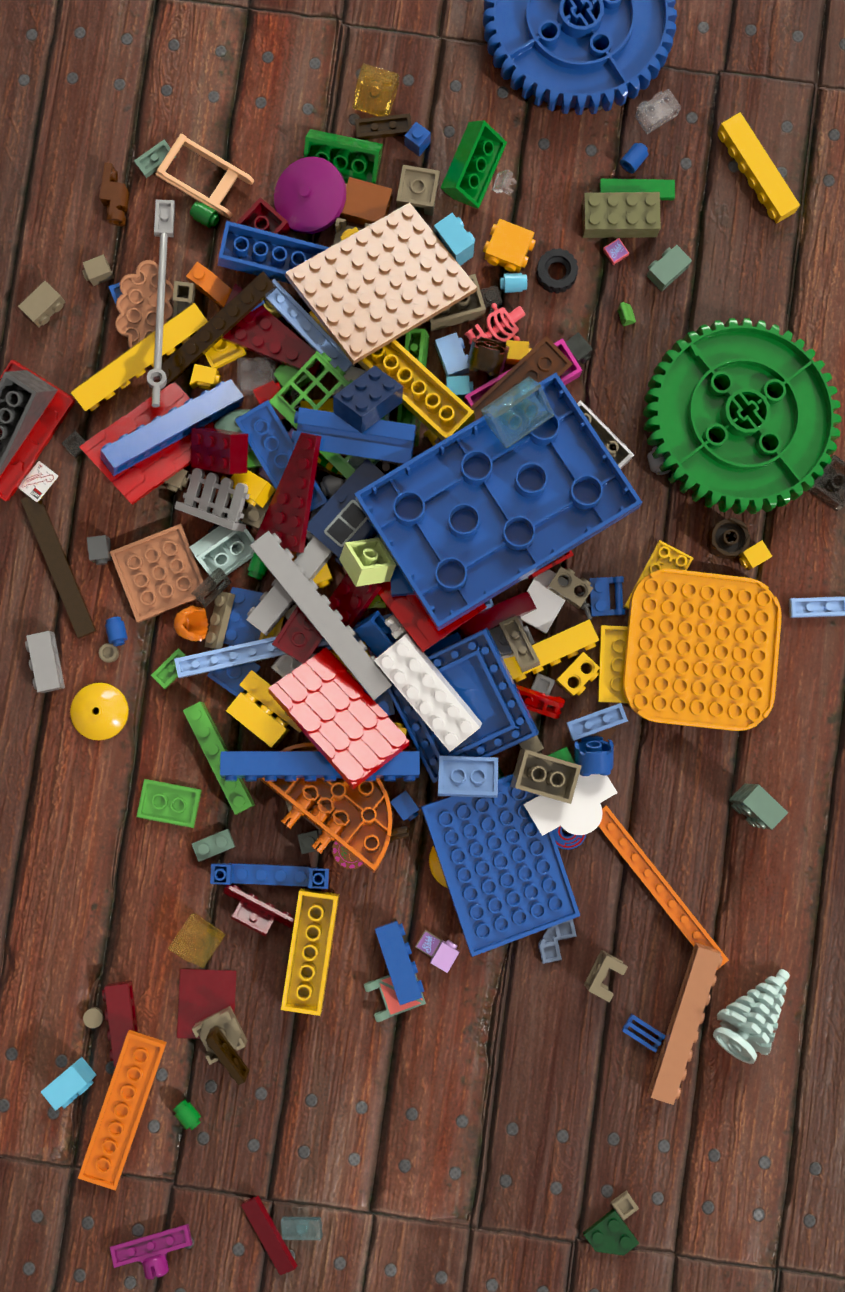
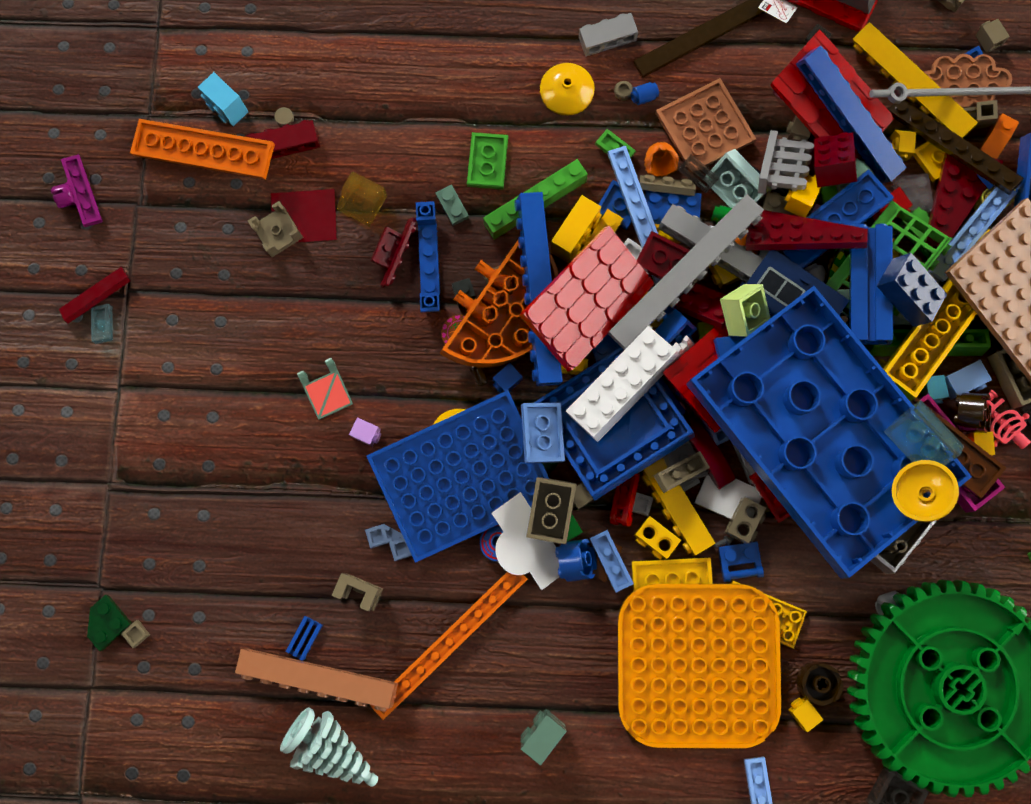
camera: 90 degrees right, 5 degrees down
(99, 549) = (722, 68): dark grey brick -> none
(187, 1115) = (200, 208): green brick -> none
(227, 1055) = (257, 236): dark brown plate -> none
(310, 952) = (359, 303): yellow brick -> none
(397, 959) = (355, 388): blue brick -> none
(428, 943) = (376, 415): tile -> none
(564, 433) = (918, 479): none -> yellow dish
(579, 348) = (995, 508): pearl dark grey brick -> none

